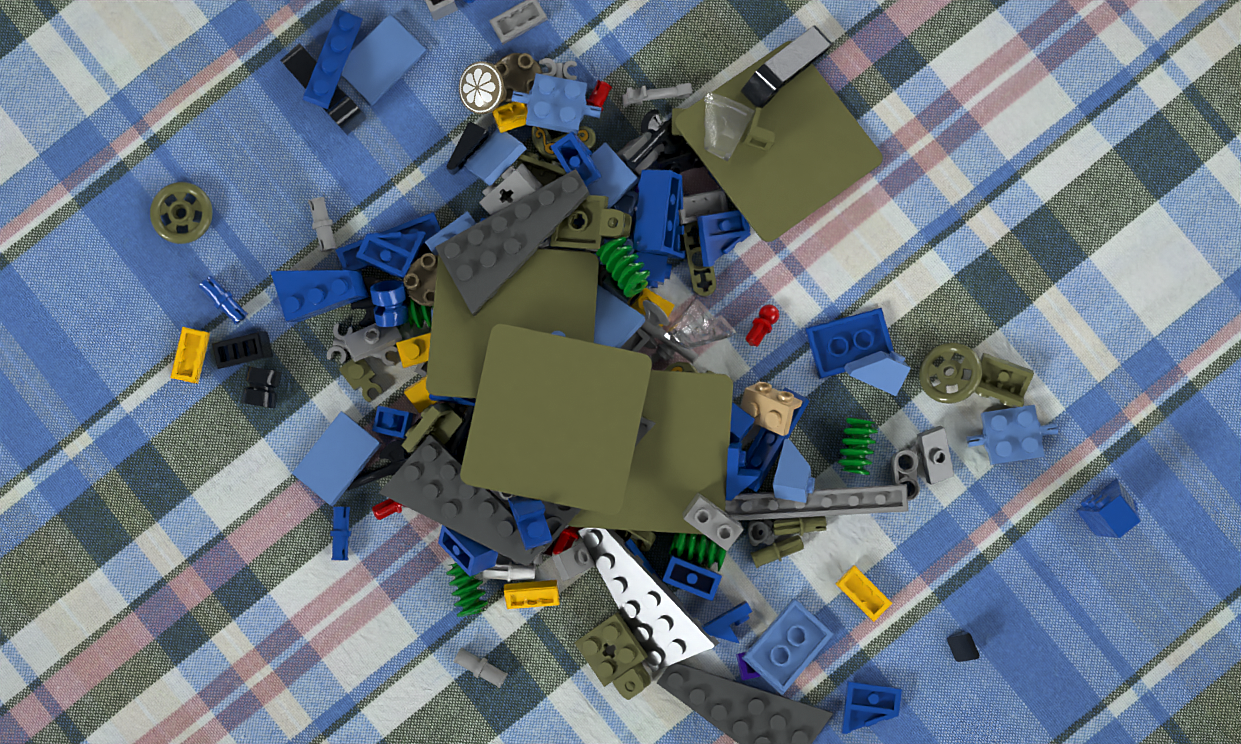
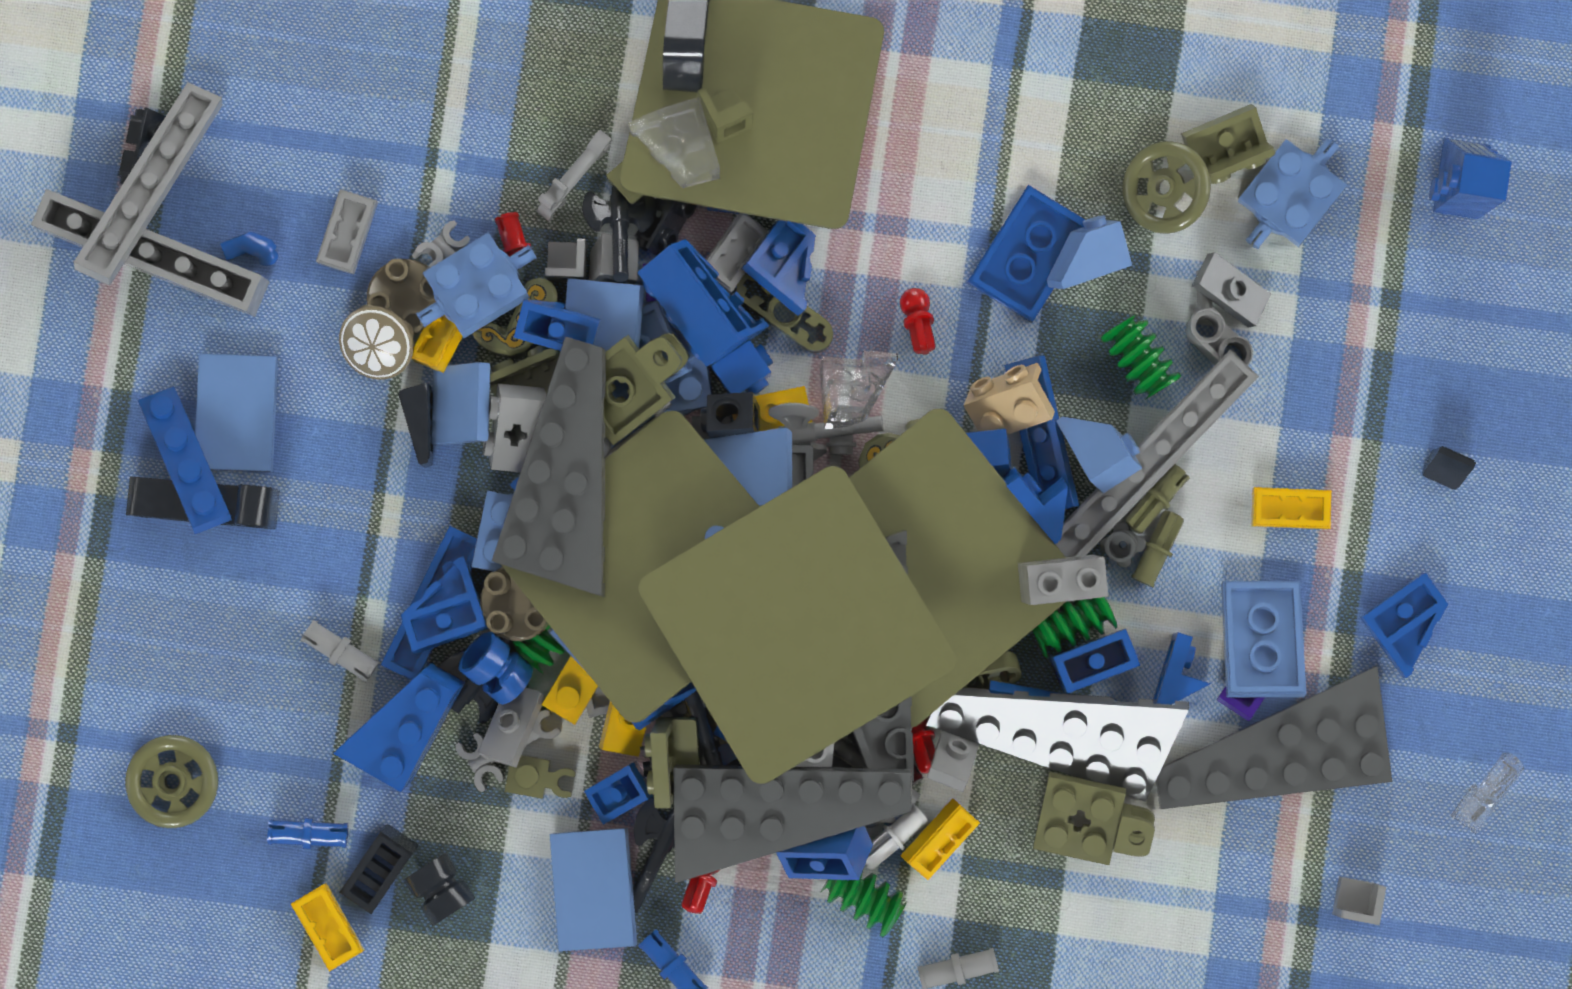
camera: 50 degrees left, 0 degrees up
(530, 521) = (870, 758): blue slope -> none
(614, 134) = (566, 261): none -> light grey panel
(623, 266) = (714, 394): green piece -> none

